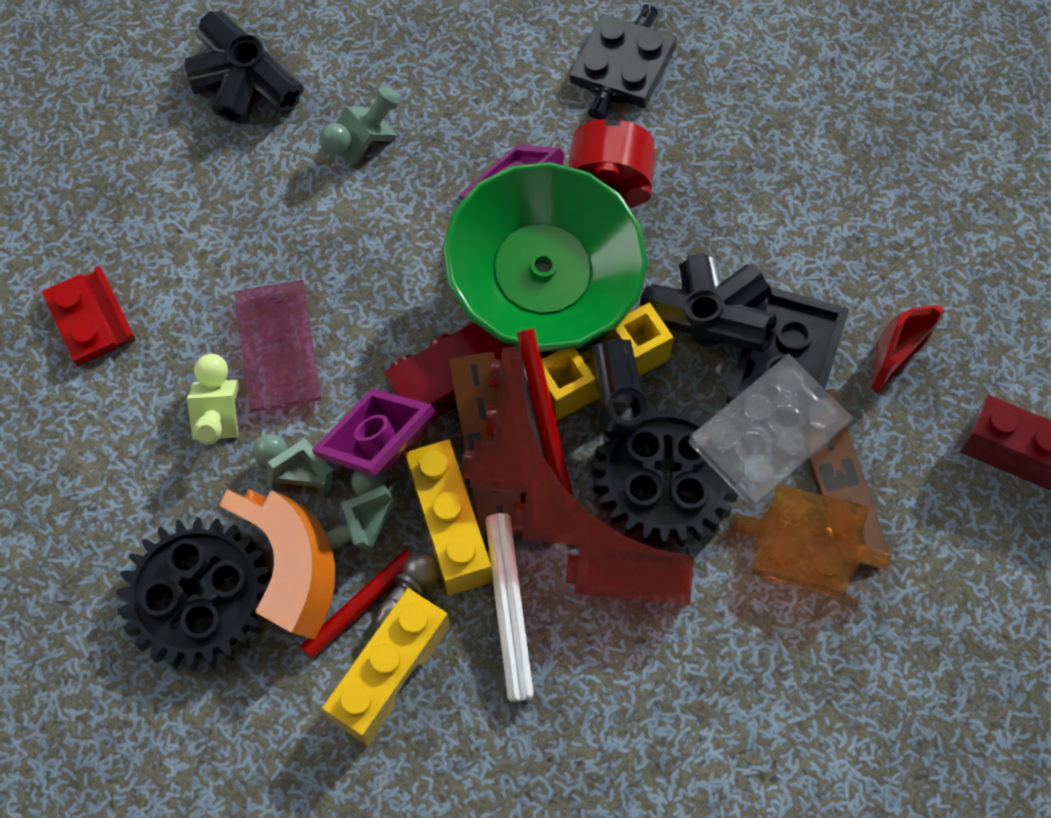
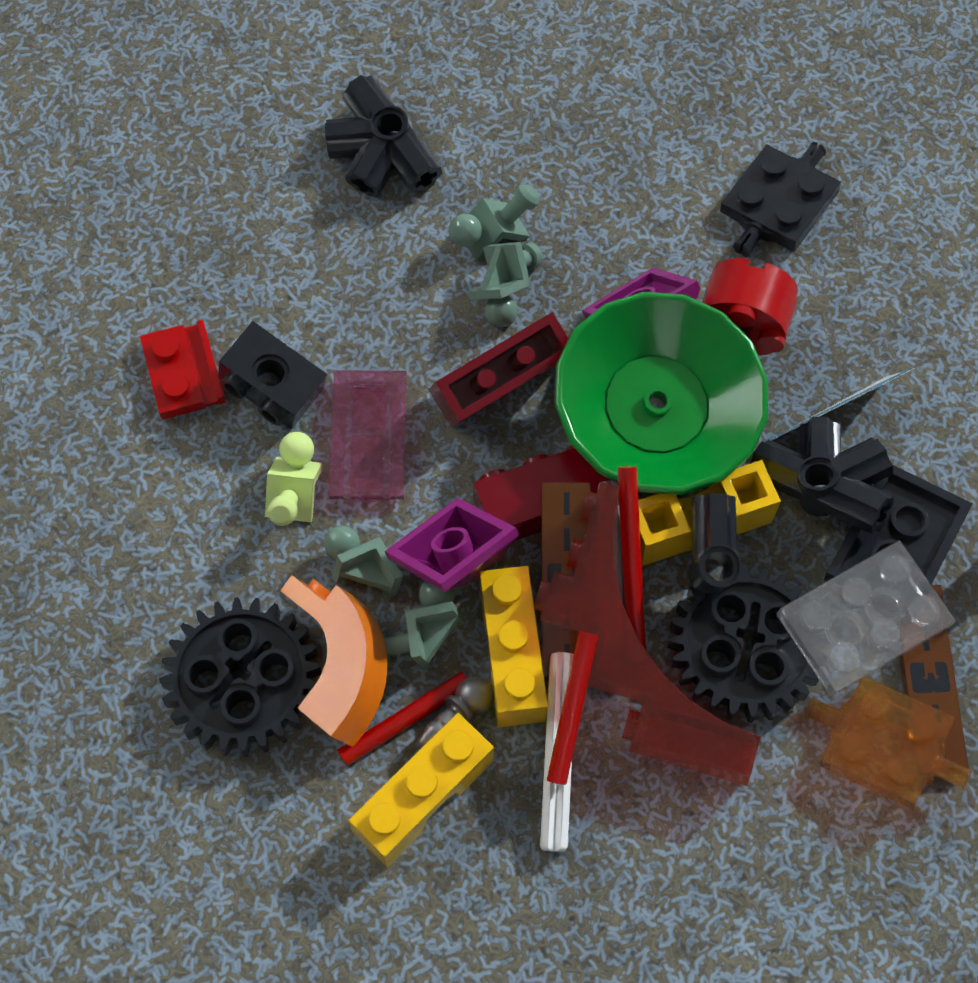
camera: 10 degrees right, 0 degrees up
(162, 286) = (261, 353): none -> black brick
(381, 173) = (505, 276): none -> sand green piece
(390, 263) = (499, 370): none -> dark red brick
(514, 563) = (572, 708): none -> red bar
(718, 234) = (859, 393): none -> sticker

